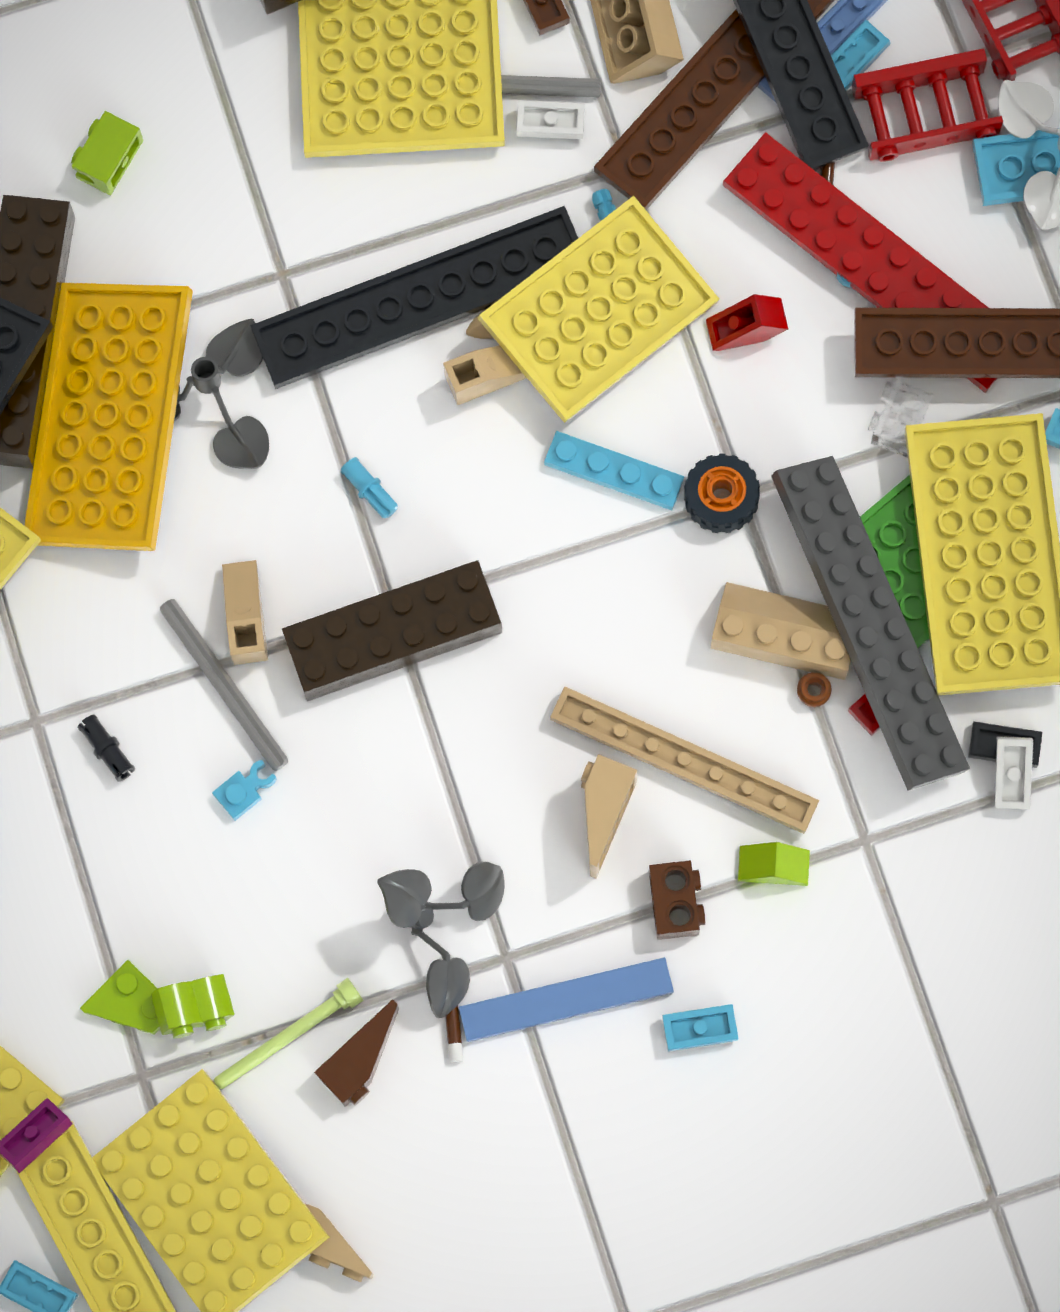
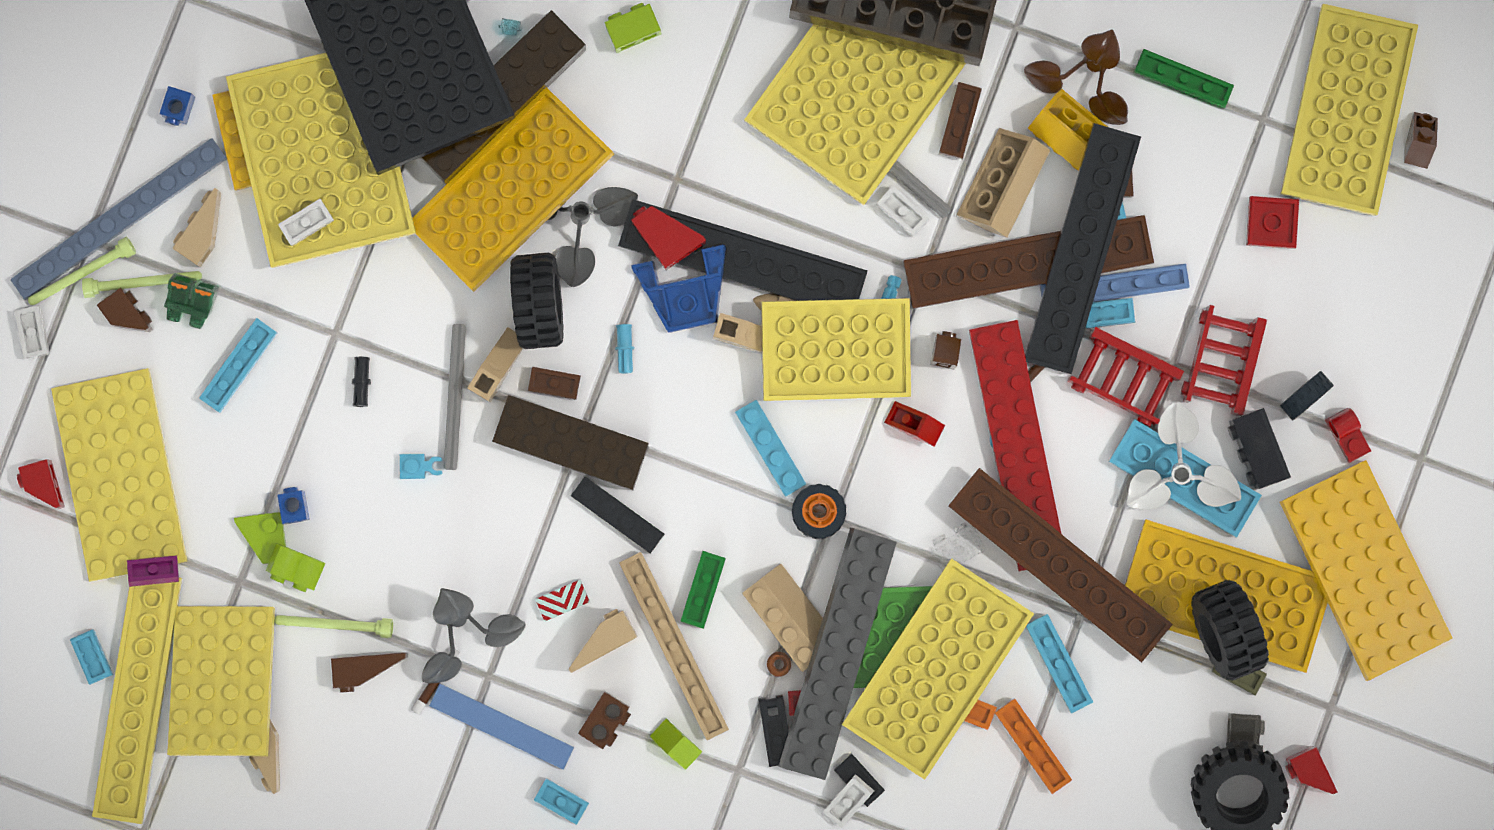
camera: 30 degrees right, 10 degrees up
(148, 951) = (301, 513): none -> blue brick
(233, 499) = (536, 300): none -> black tyre
(318, 331) = (666, 236): none -> red slope
(322, 583) = (554, 383): none -> reddish brown plate
(398, 384) = (688, 301): none -> blue wing
(506, 670) = (617, 514): none -> black plate
(521, 809) = (562, 600): none -> tile
(665, 674) = (703, 589): none -> green plate
(718, 223) = (946, 350): none -> reddish brown slope
(868, 761) = (774, 728): none -> black plate

